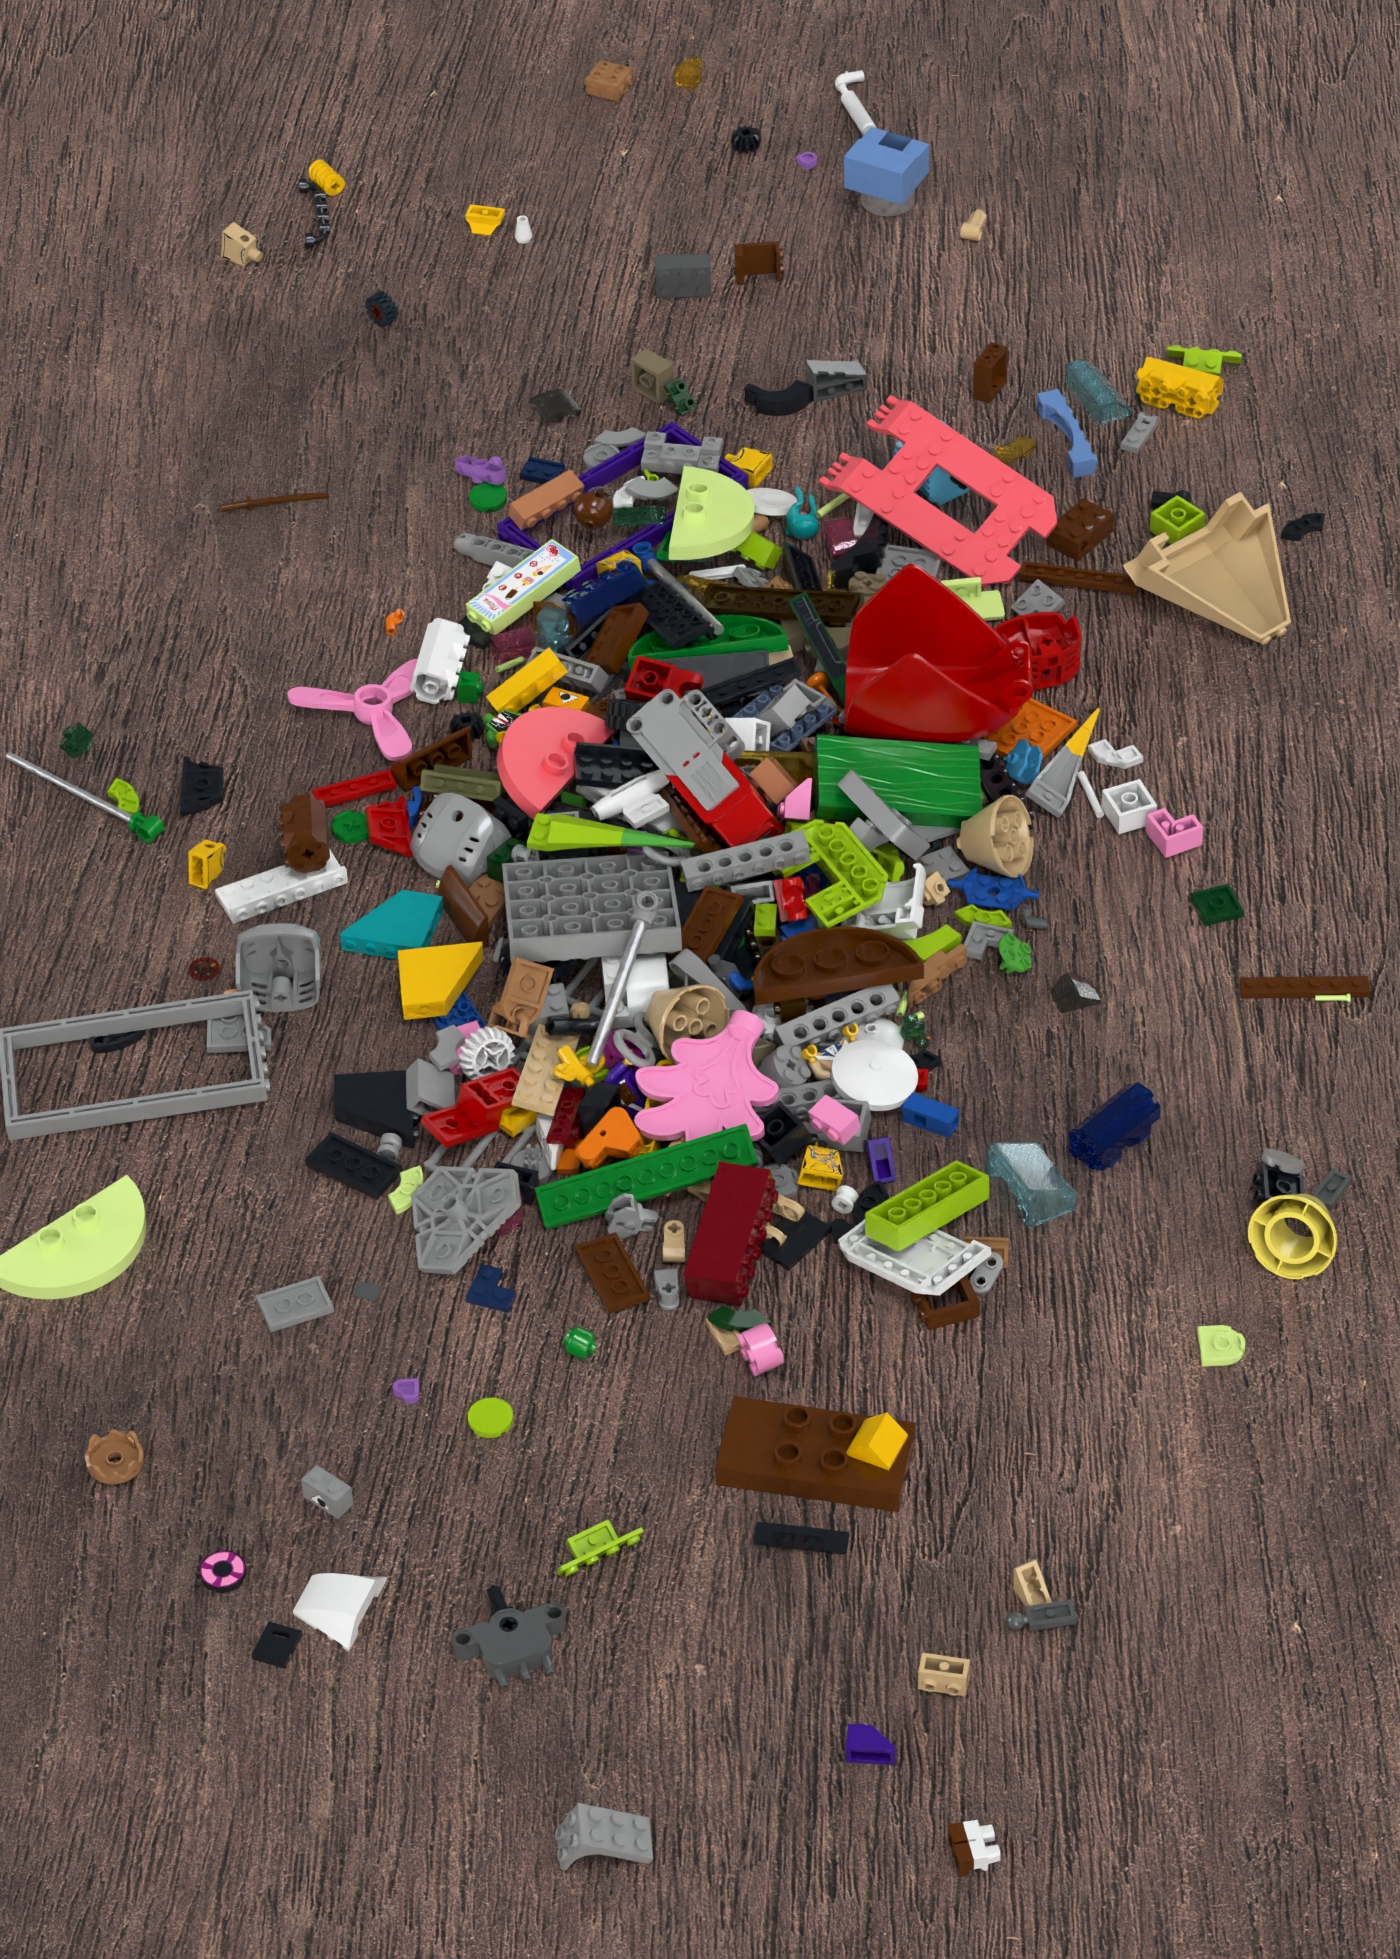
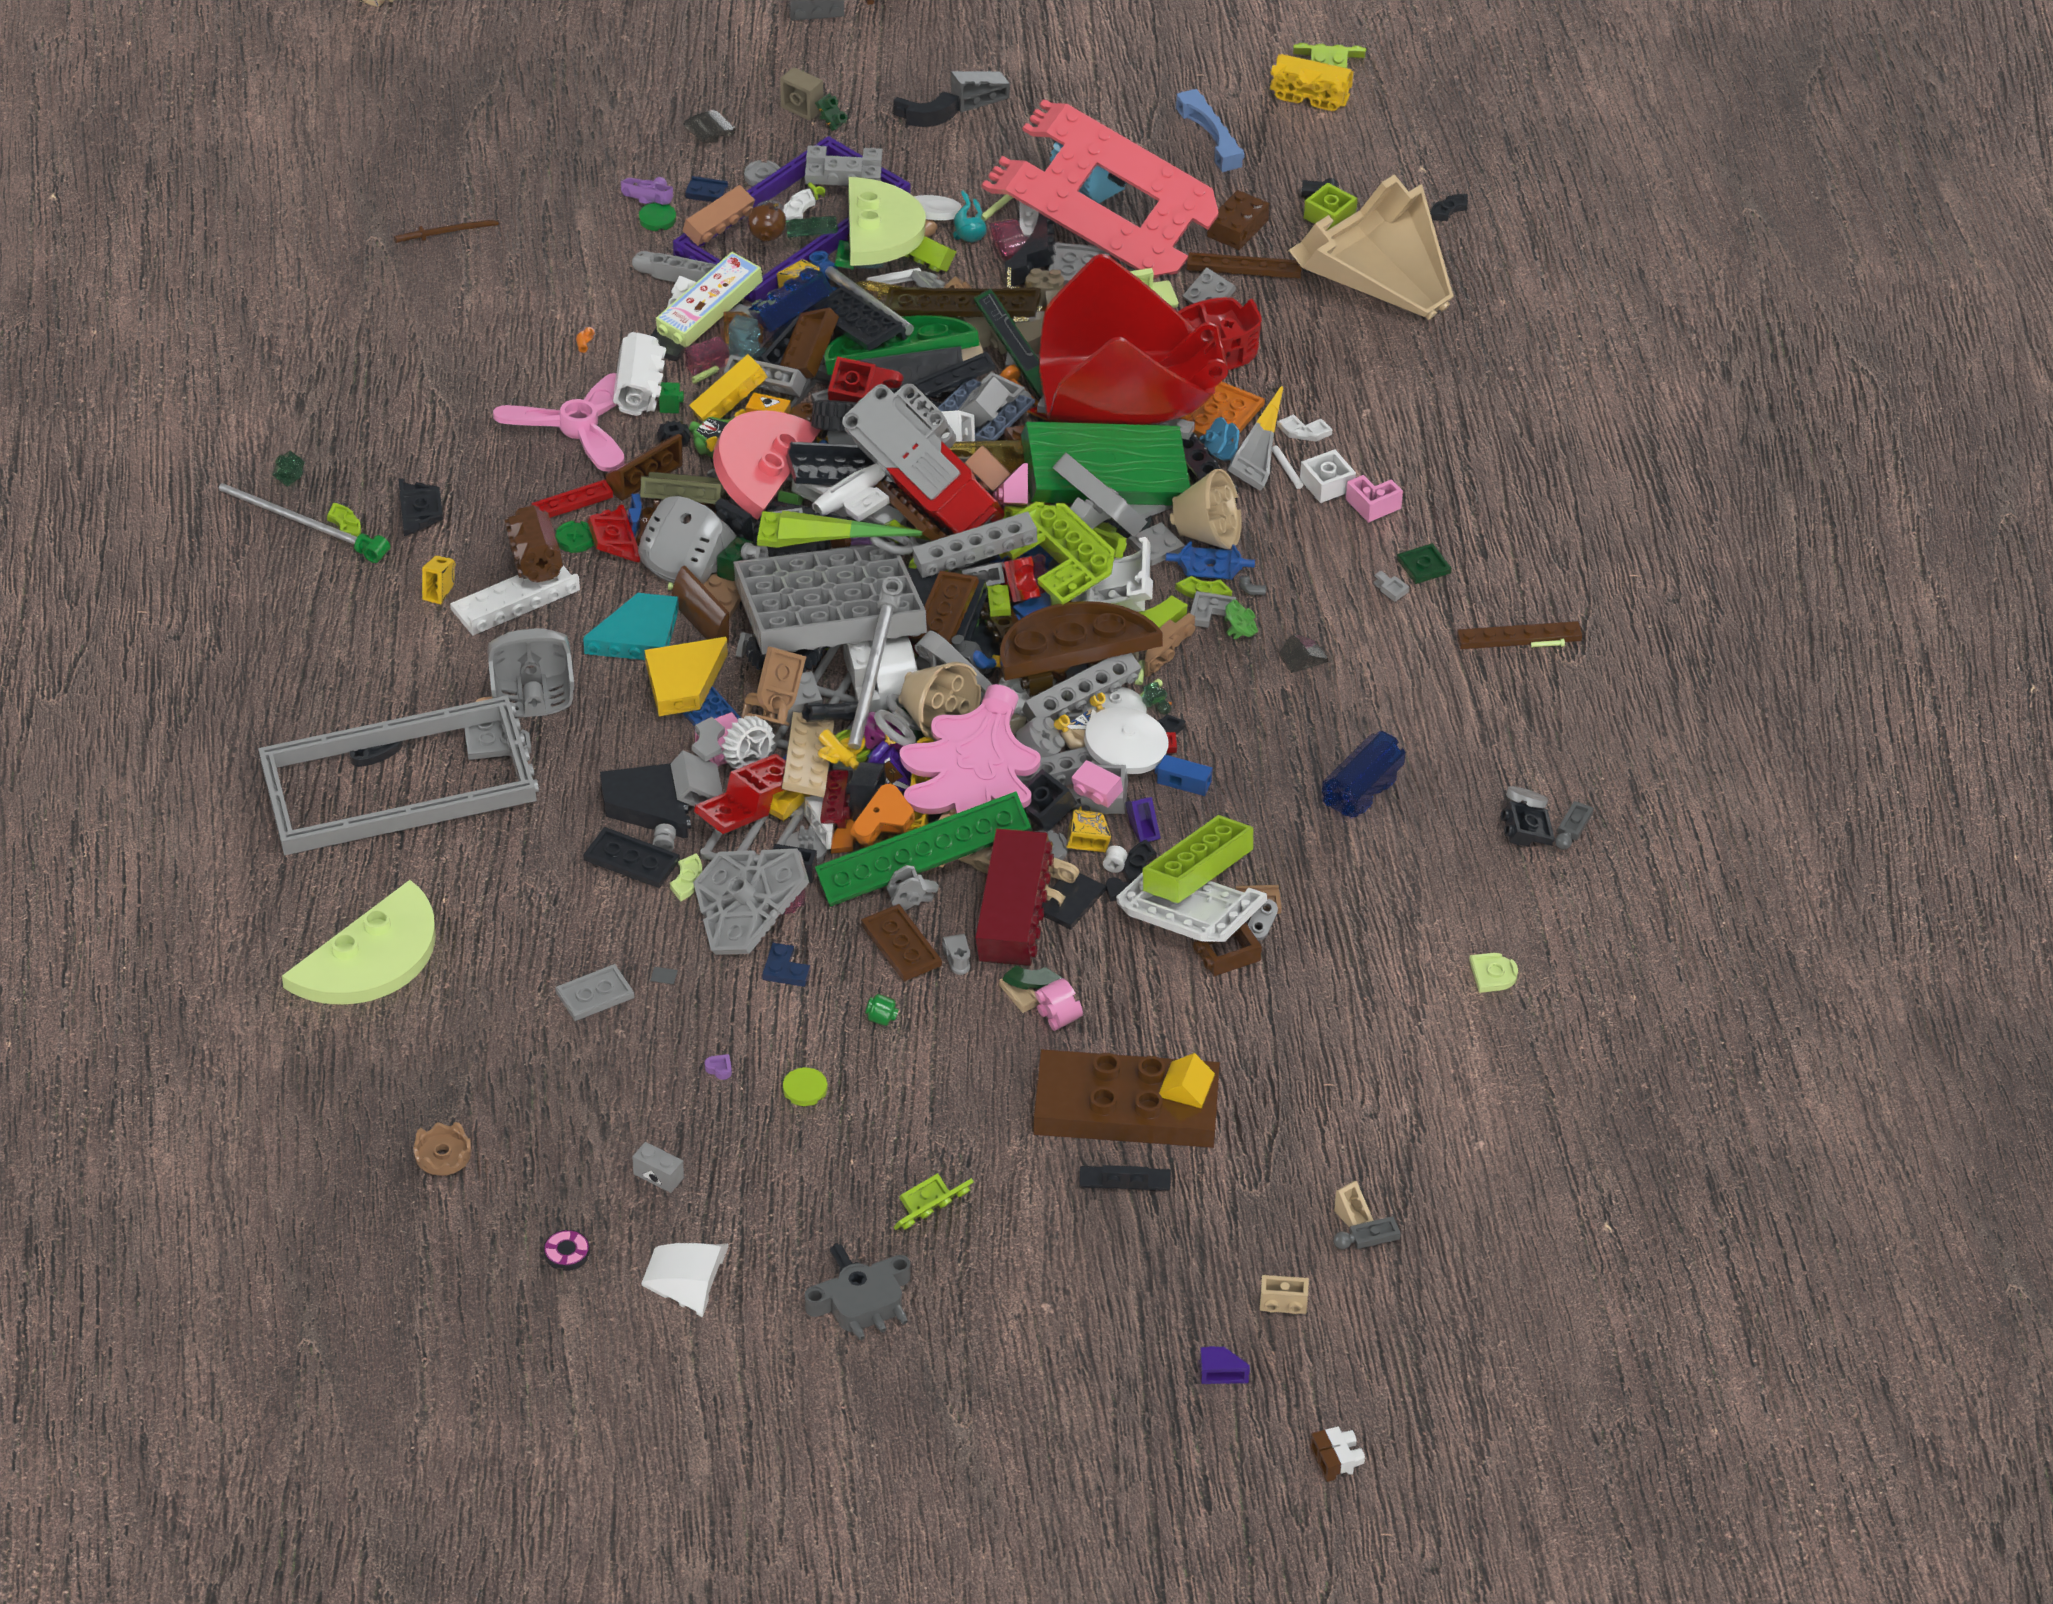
camera: 10 degrees left, 0 degrees up
(204, 969) = (451, 680): piece -> none
(274, 1649) = (631, 1320): black piece -> none
(381, 308) = (524, 41): black wheel -> none
(580, 1010) = (830, 696): tan plate -> none
(603, 1832) = (980, 1465): light grey bracket -> none
(620, 439) = (778, 155): light grey tile -> none
(645, 489) = (819, 201): light grey tile -> none
(674, 1242) = (957, 910): tan piece -> none
(753, 463) = (913, 171): yellow torso -> none
(799, 568) = (973, 268): black slope -> none
(934, 889) = (1157, 563): tan brick -> none
(990, 372) = (1129, 76): reddish brown window -> none
(1019, 448) = (1165, 147): clear yellow tile -> none
(1032, 1179) = (1293, 827): clear light blue windscreen -> none
(1095, 392) = (1231, 90): clear light blue slope -> none
(1139, 433) = (1279, 127): light grey plate -> none
(1179, 928) = (1392, 588): none -> light grey plate
(1281, 1248) = (1549, 883): light yellow cone -> none

